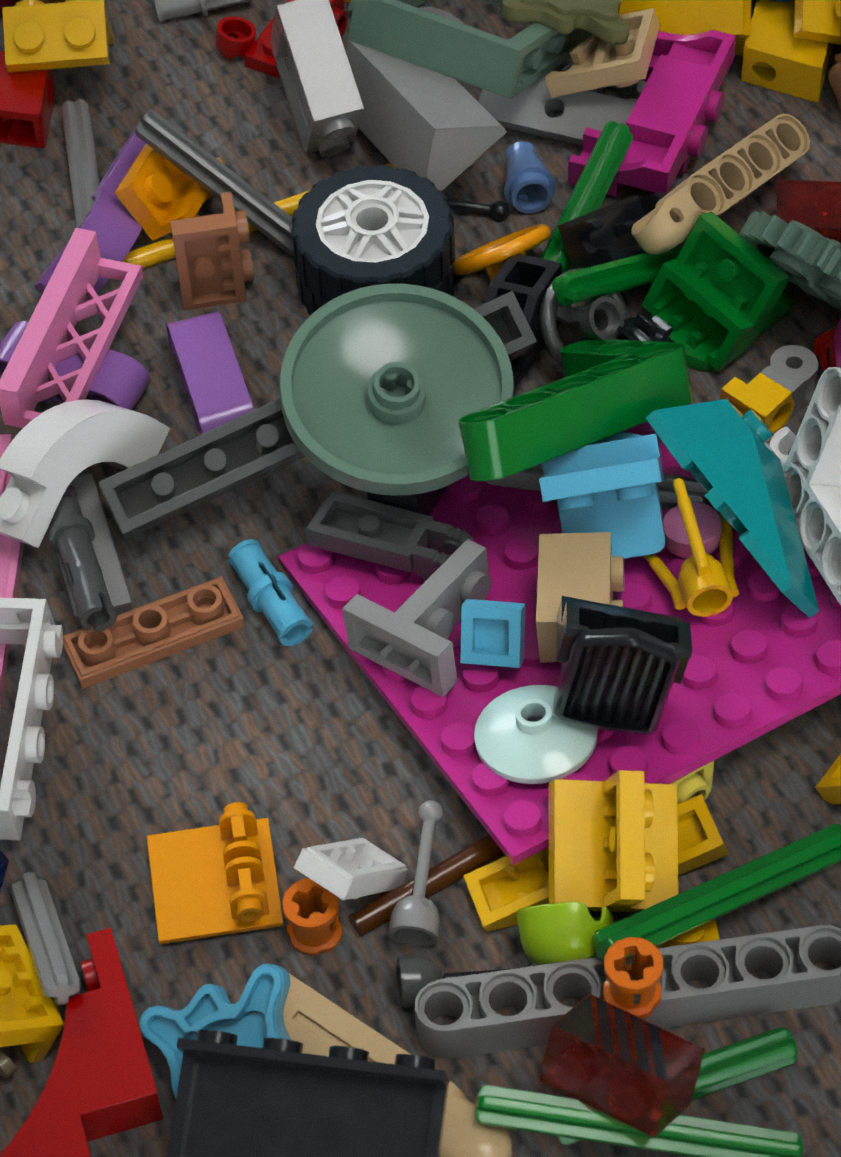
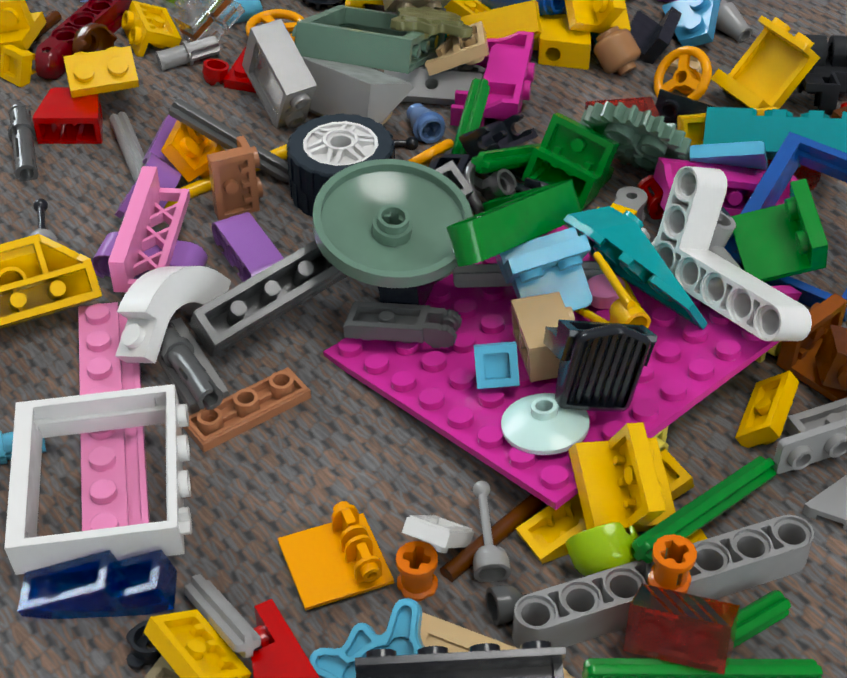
camera: 15 degrees left, 10 degrees down
(270, 592) = (325, 372): medium azure pin -> none
(417, 634) = (444, 375): light grey bracket -> none
(722, 183) = (560, 98): tan piece -> none

